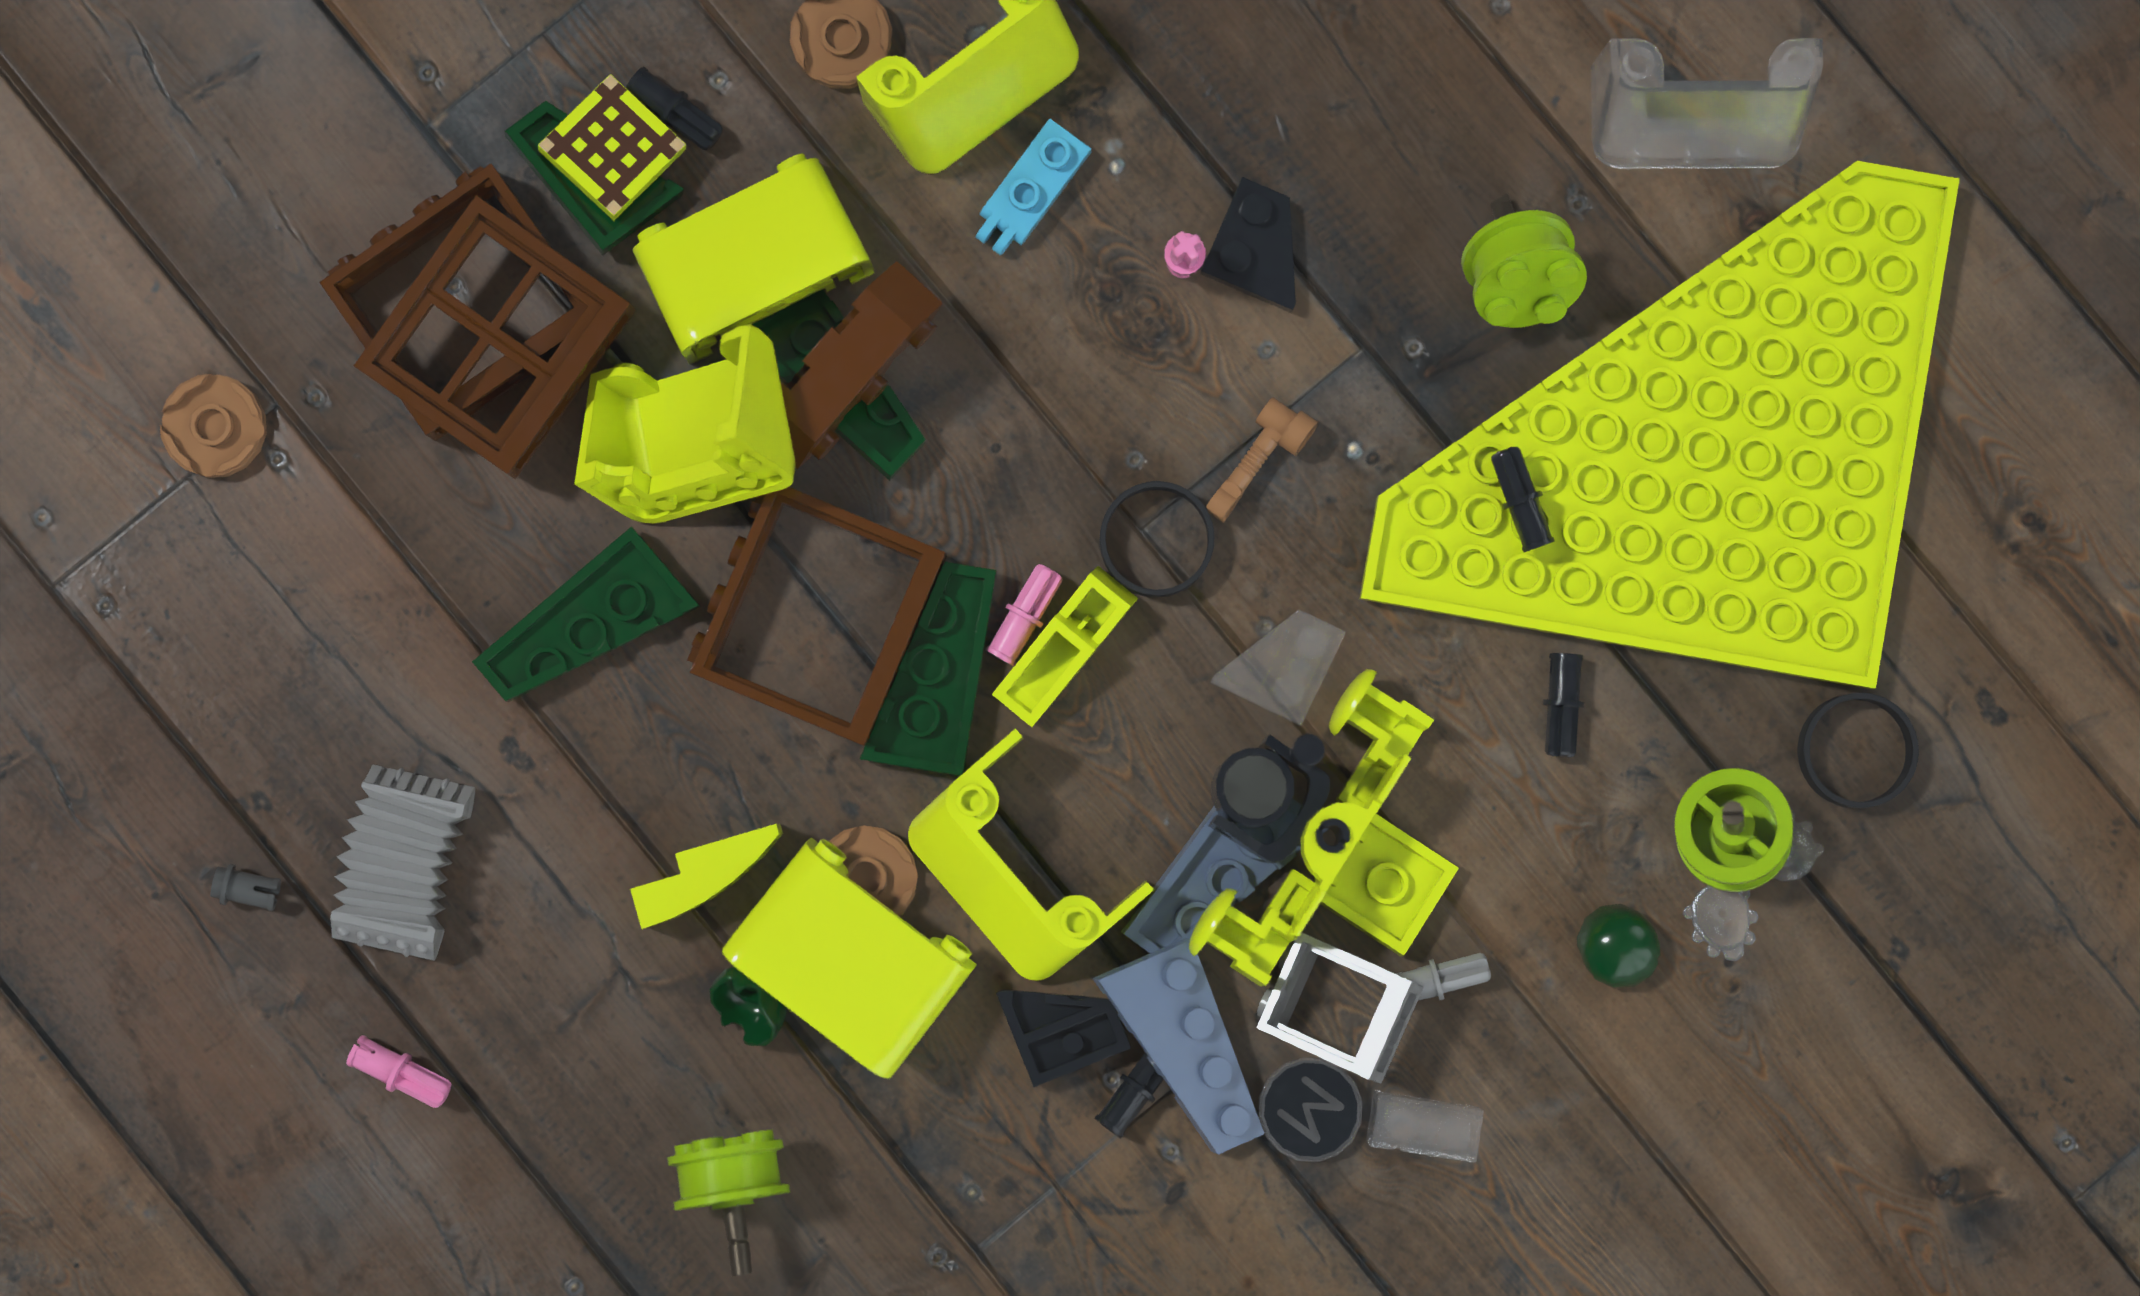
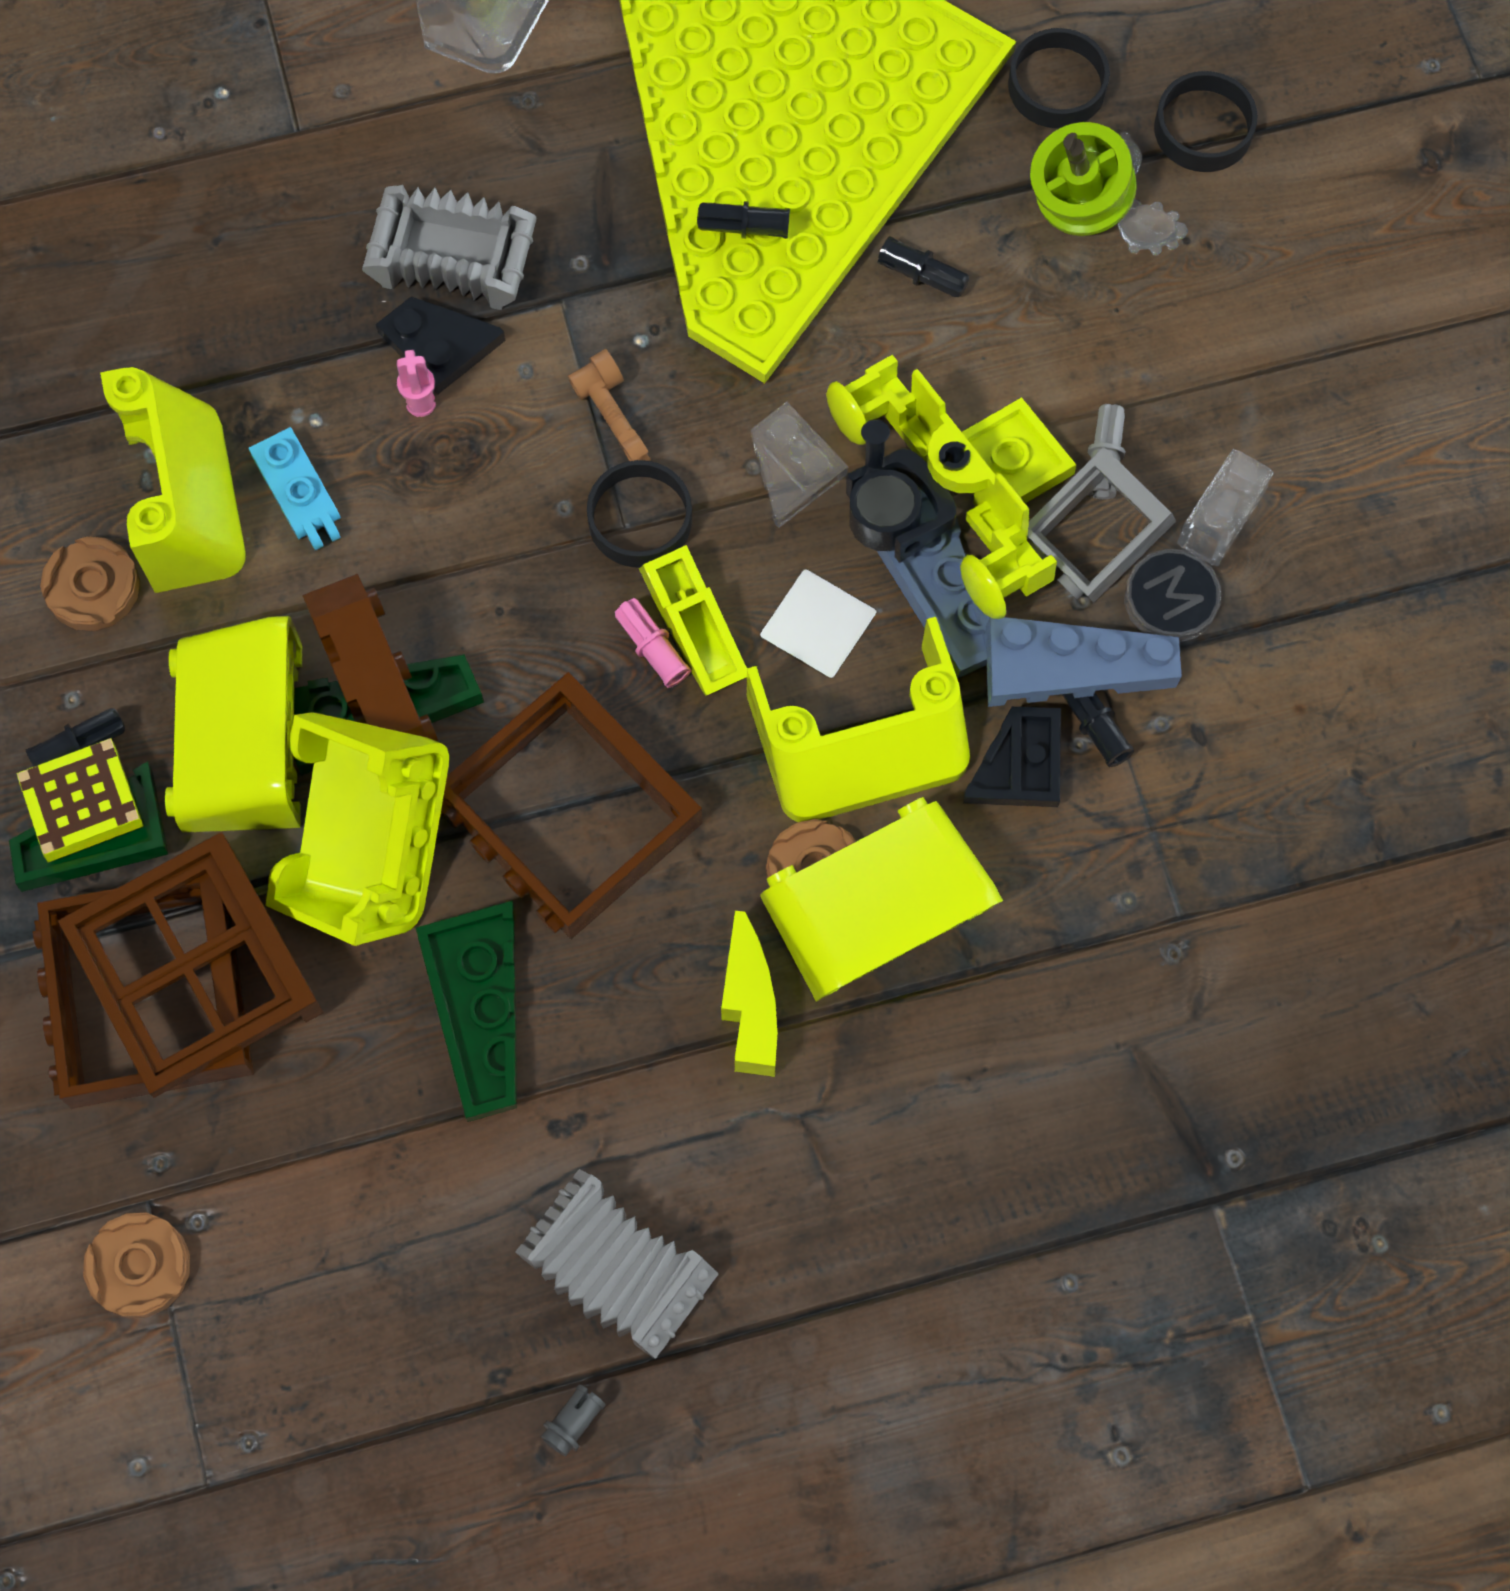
camera: 65 degrees left, 15 degrees down
(399, 1072) = (806, 1351): bright pink axle -> none
(728, 1180) = (1031, 1084): lime wheel -> none
(747, 1005) = (883, 1005): dark green hair -> none
(936, 686) = (682, 736): dark green wing -> none
(1124, 767) = (818, 623): none -> white sticker
(1365, 208) = (449, 244): none -> light grey piece
(1523, 267) = (558, 139): lime wheel -> none
(1618, 946) = (1138, 308): dark green hair -> none
(1930, 927) = (1219, 84): none -> black tyre

